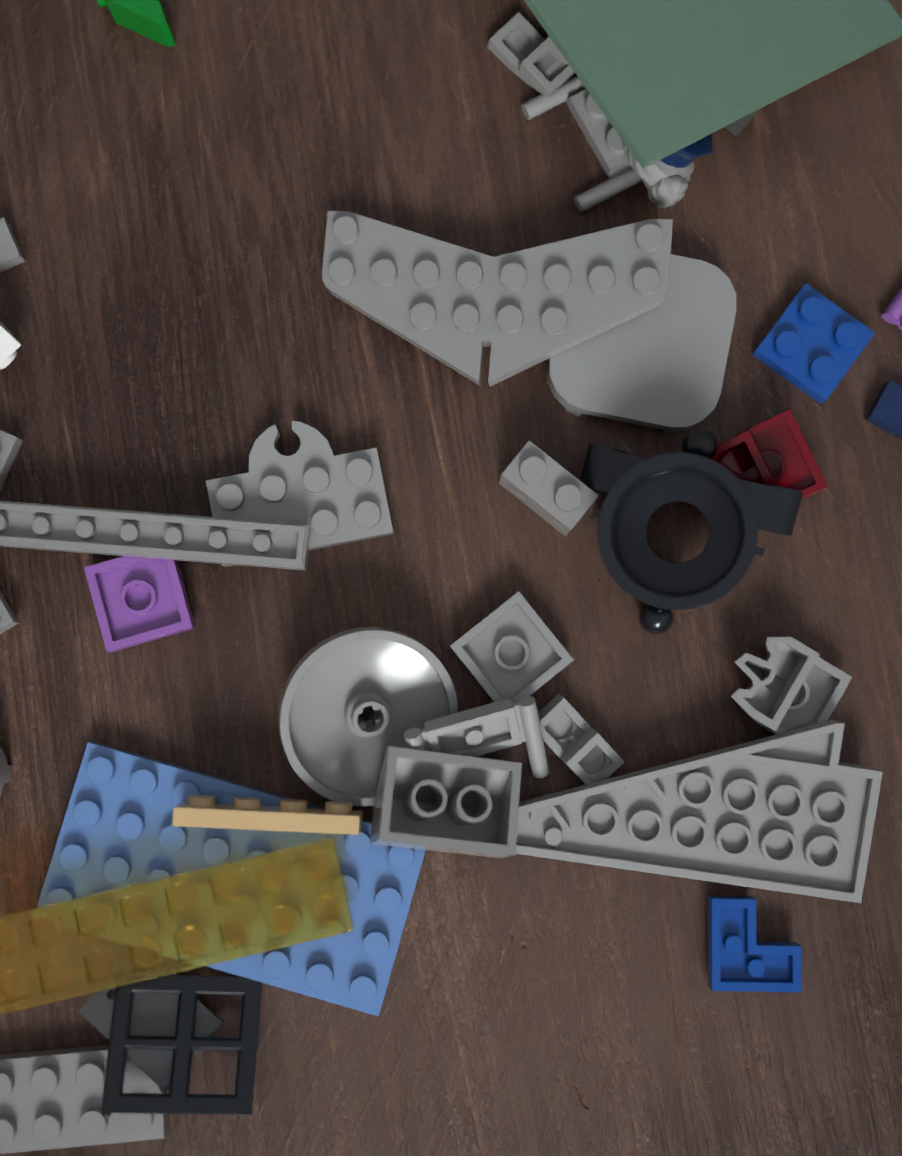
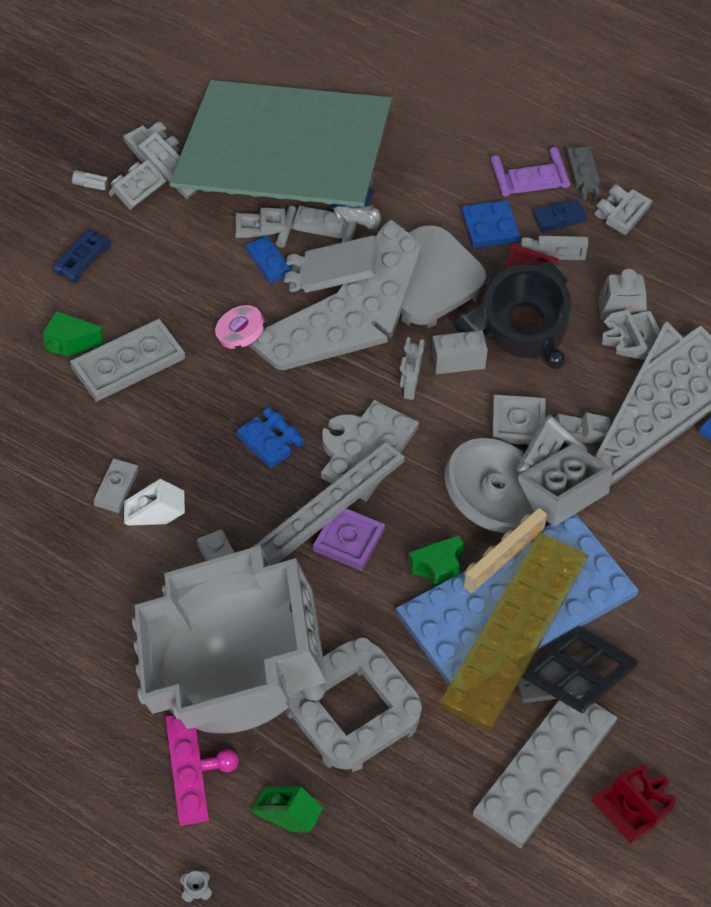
camera: 45 degrees left, 30 degrees down
(163, 97) = (127, 360): none -> light grey plate
(196, 367) = (265, 443): none -> blue plate
(197, 736) = (437, 560): none -> green brick
(335, 184) = (239, 326): none -> bright pink tile
(479, 446) = (410, 367): none -> light grey plate
(485, 119) = (268, 259): none -> blue plate
(535, 213) = (333, 265): none -> light grey tile
(840, 628) = (622, 294): none -> light grey torso
(846, 462) = (559, 246): none -> light grey plate

